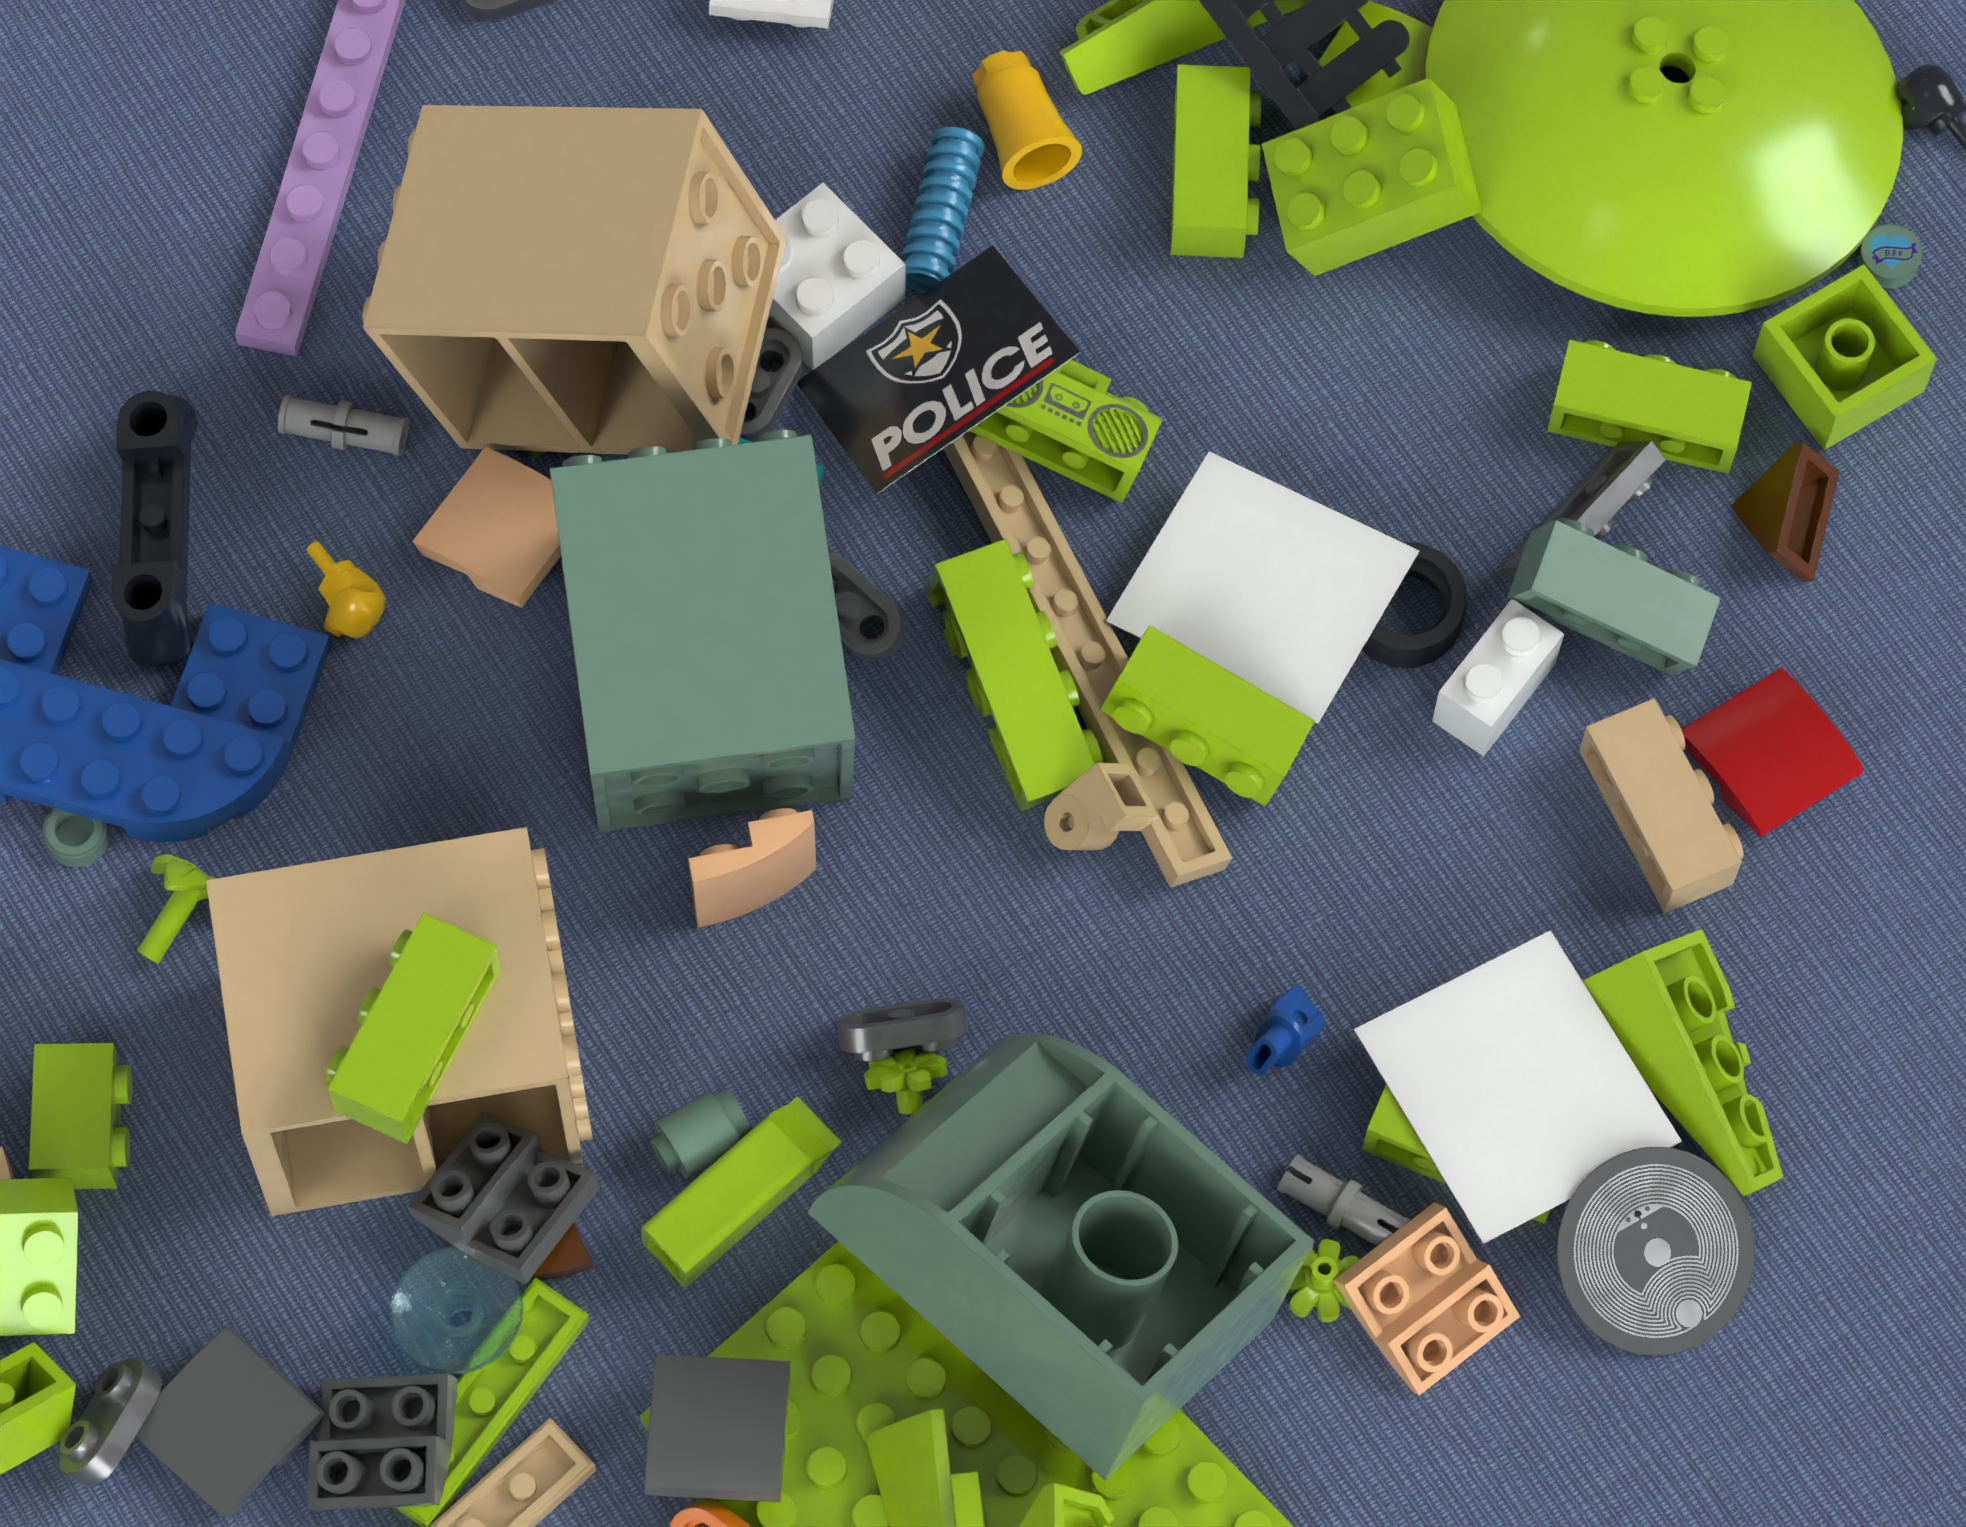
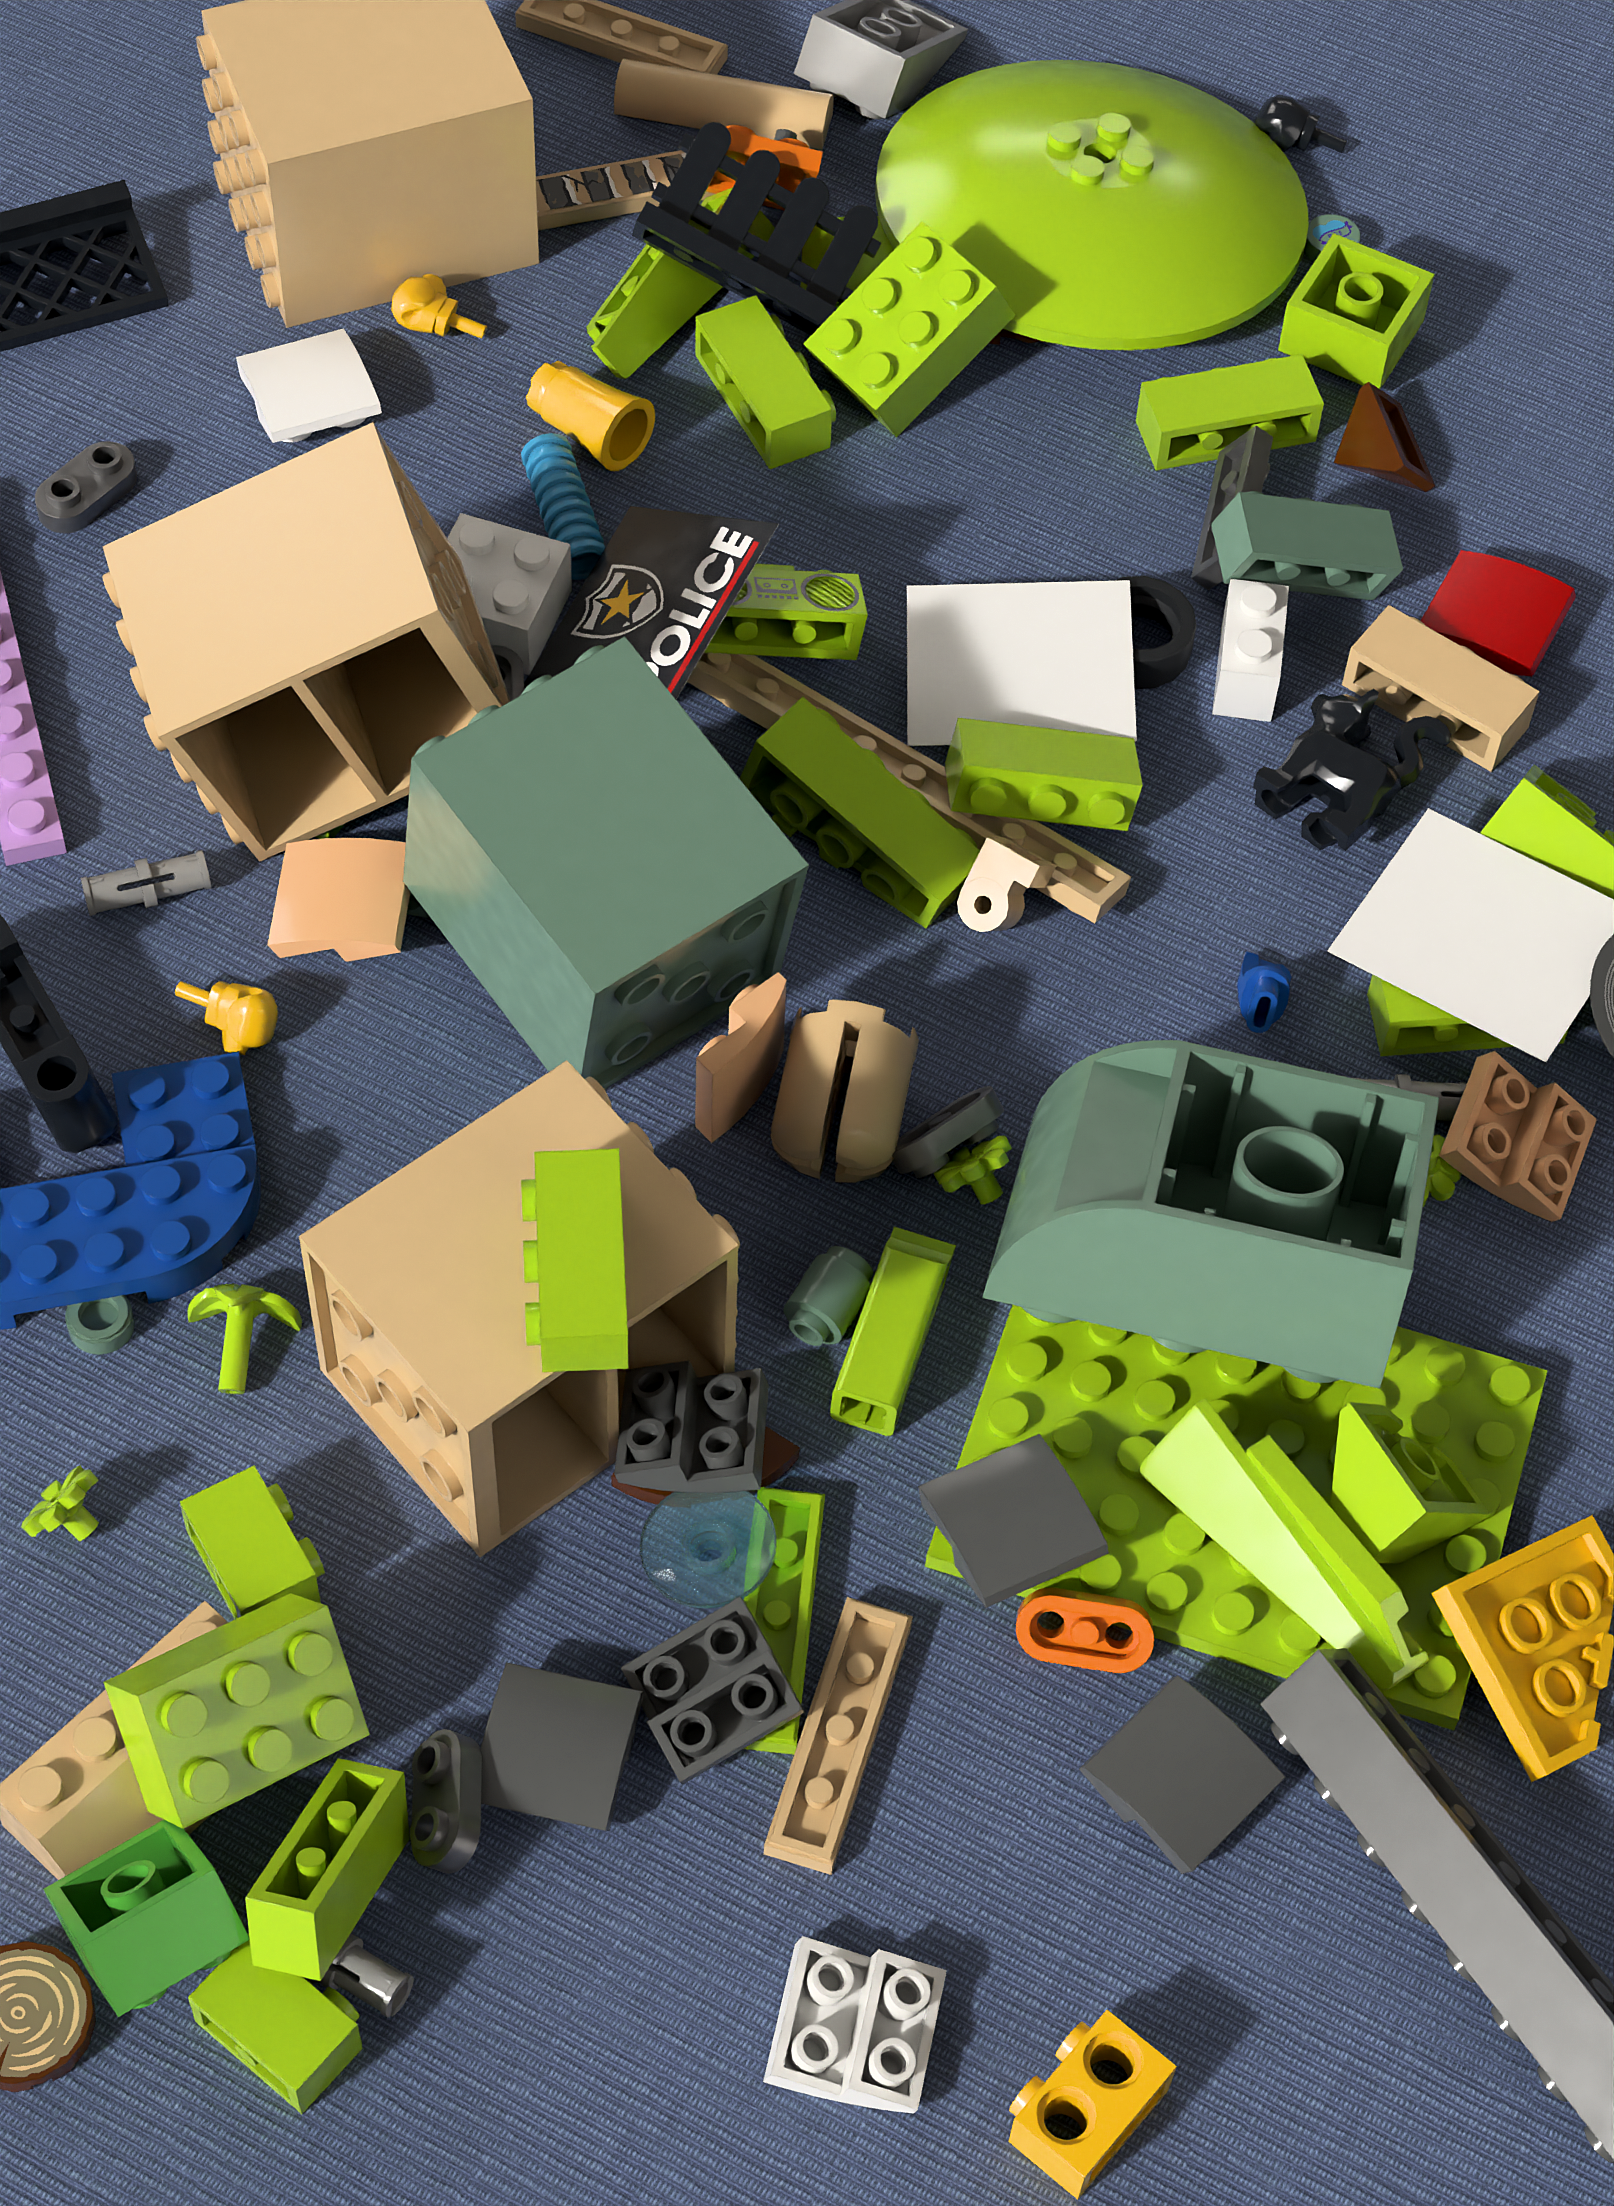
camera: 30 degrees left, 10 degrees down
(822, 947) = (820, 1050): none -> tan cylinder
(1502, 852) = (1341, 774): none -> black animal

